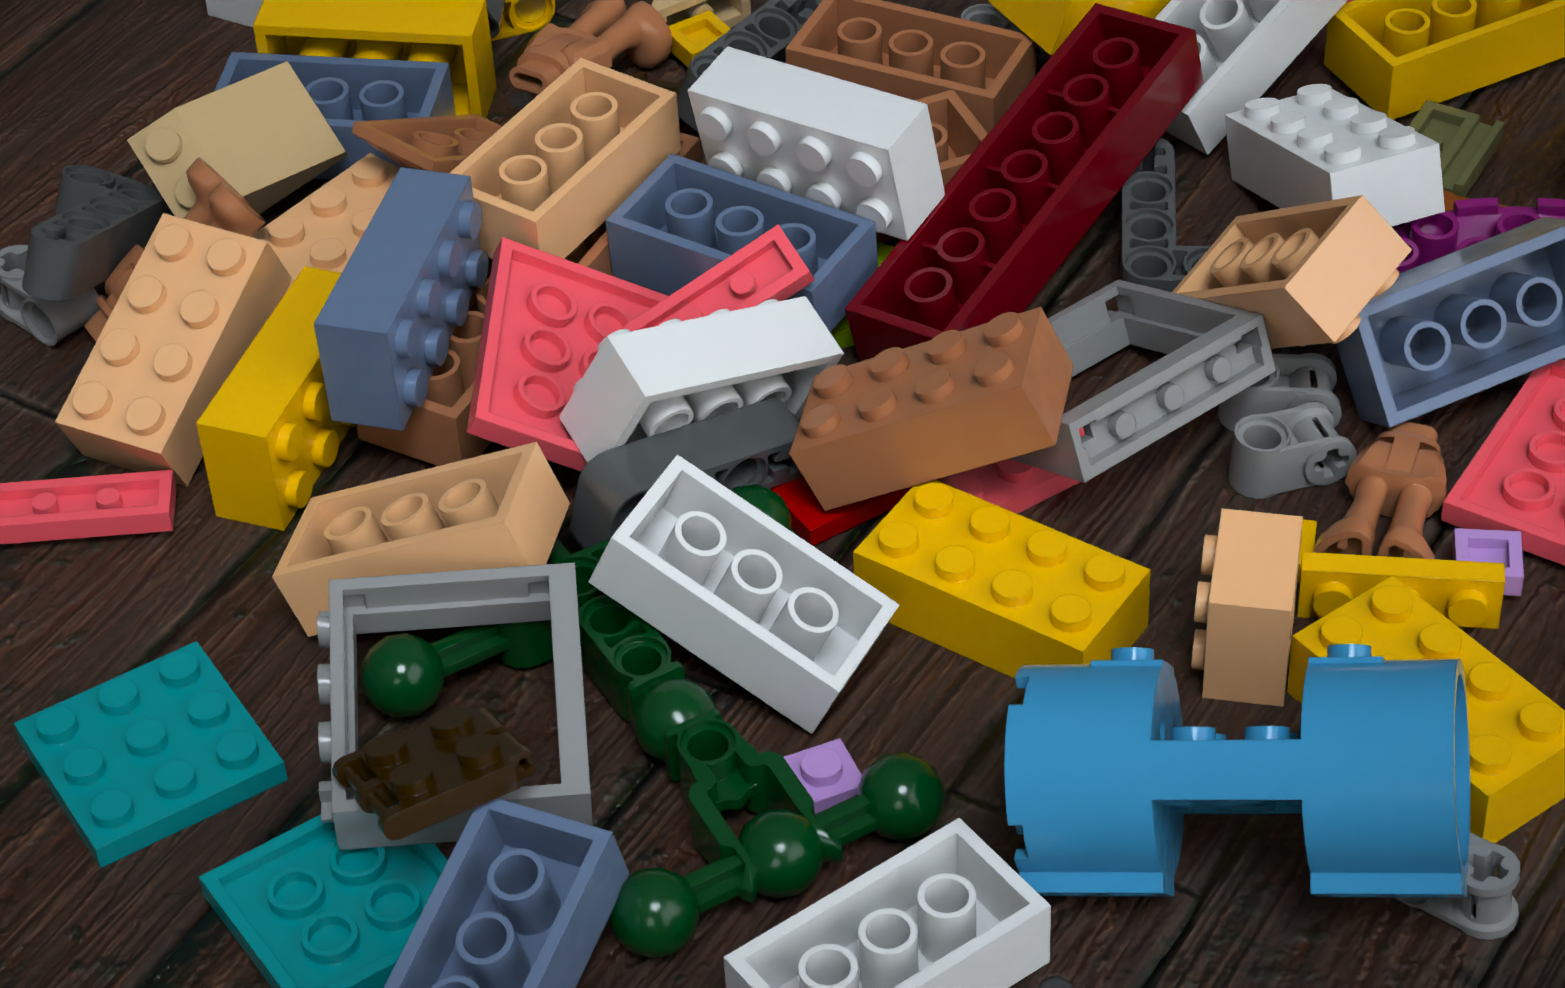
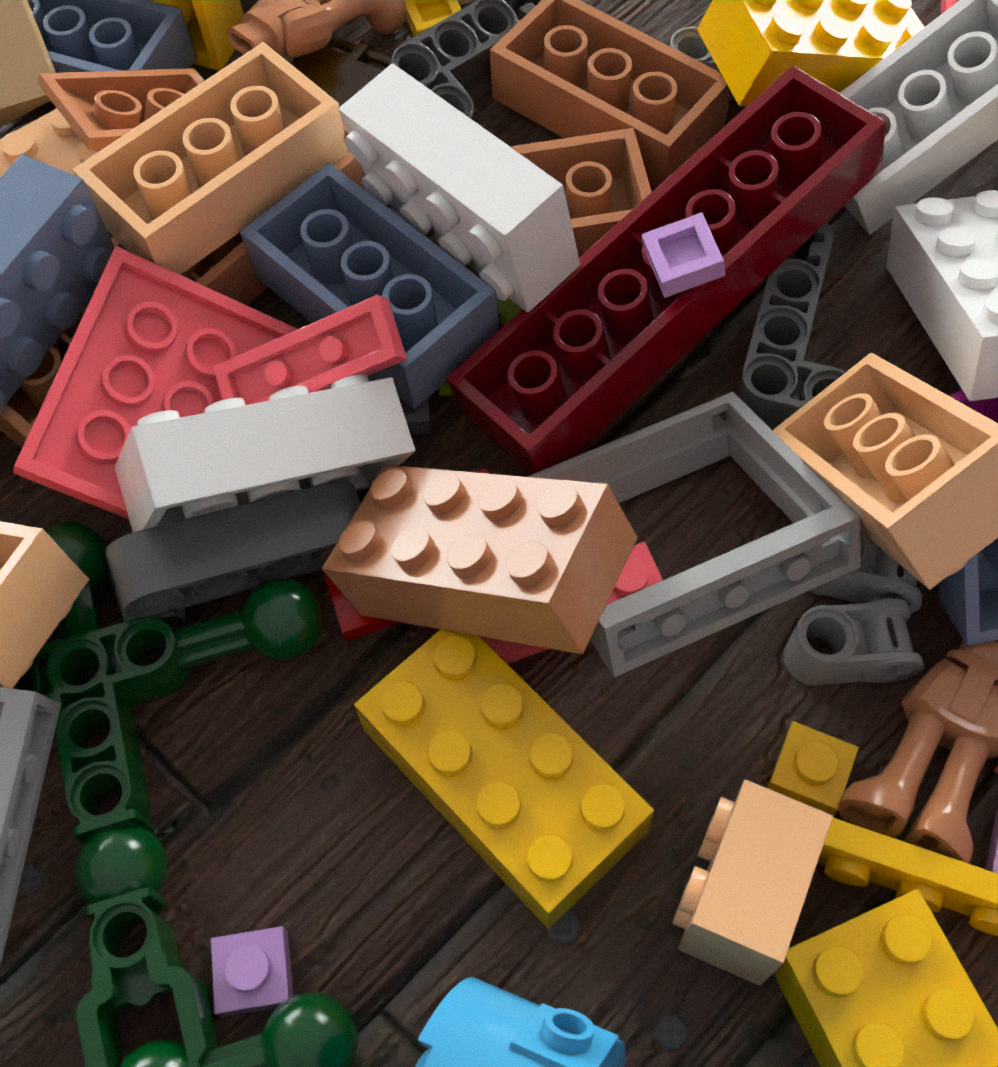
camera: 15 degrees right, 20 degrees up
(743, 593) = (218, 745): white brick -> none
(1043, 159) = (683, 255): none -> lavender plate

